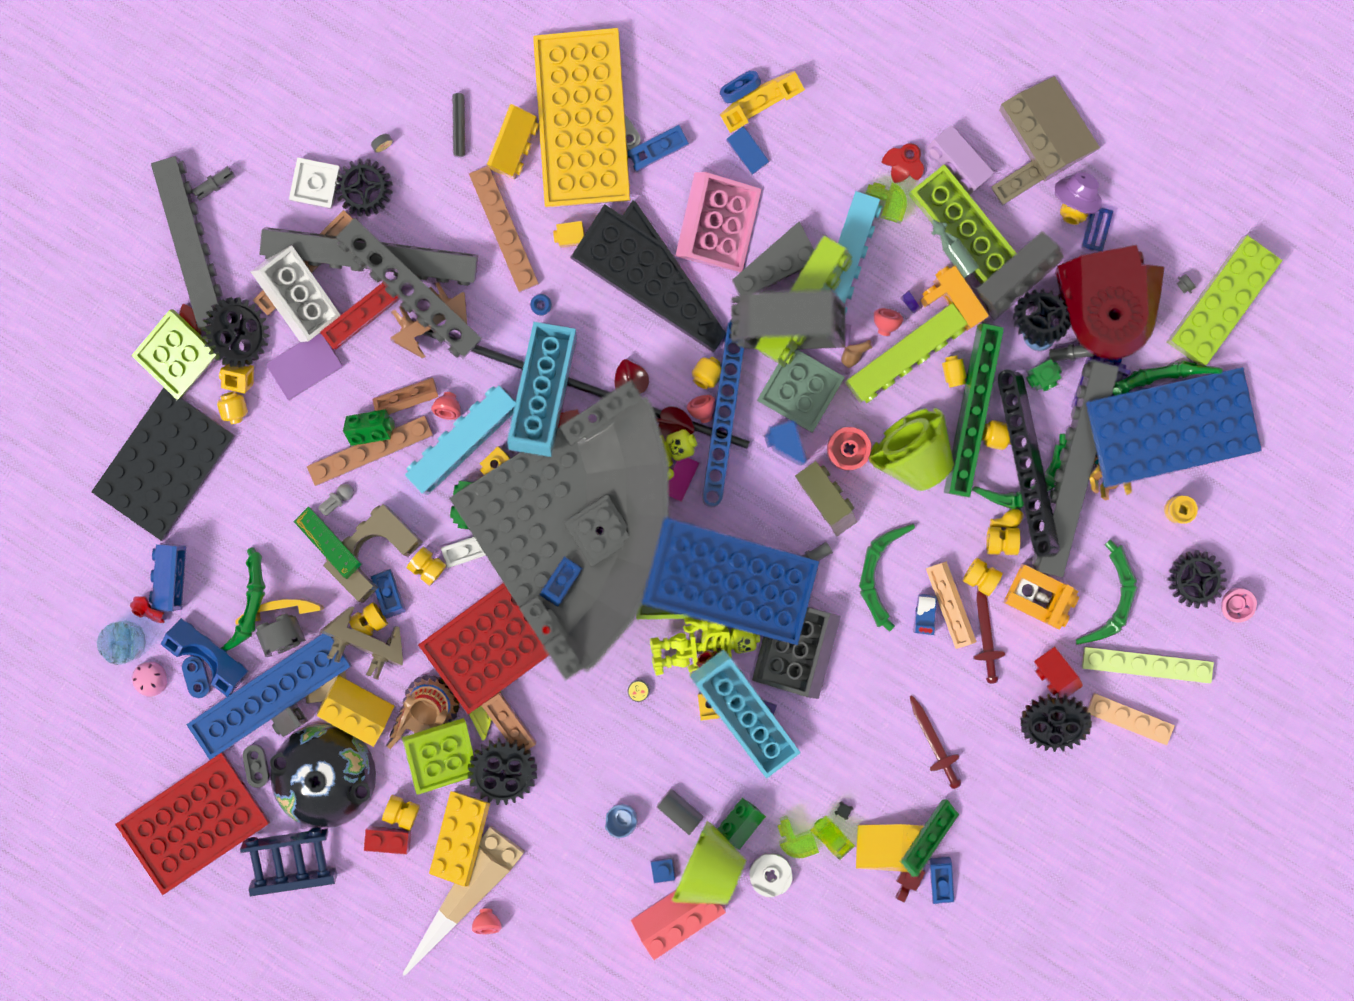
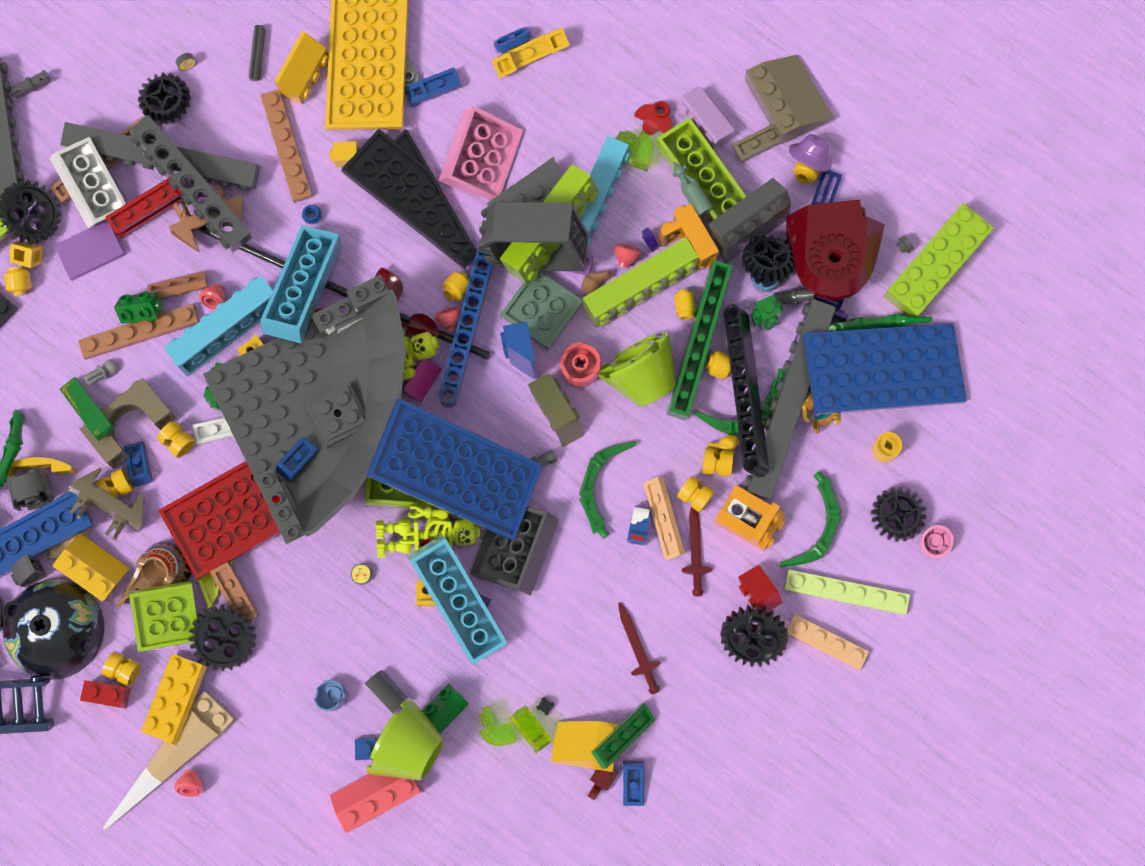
camera: 15 degrees right, 10 degrees down
(314, 183) = (120, 91): white plate -> none
(747, 150) = (513, 95): blue slope -> none
(759, 880) = (469, 774): white plate -> none

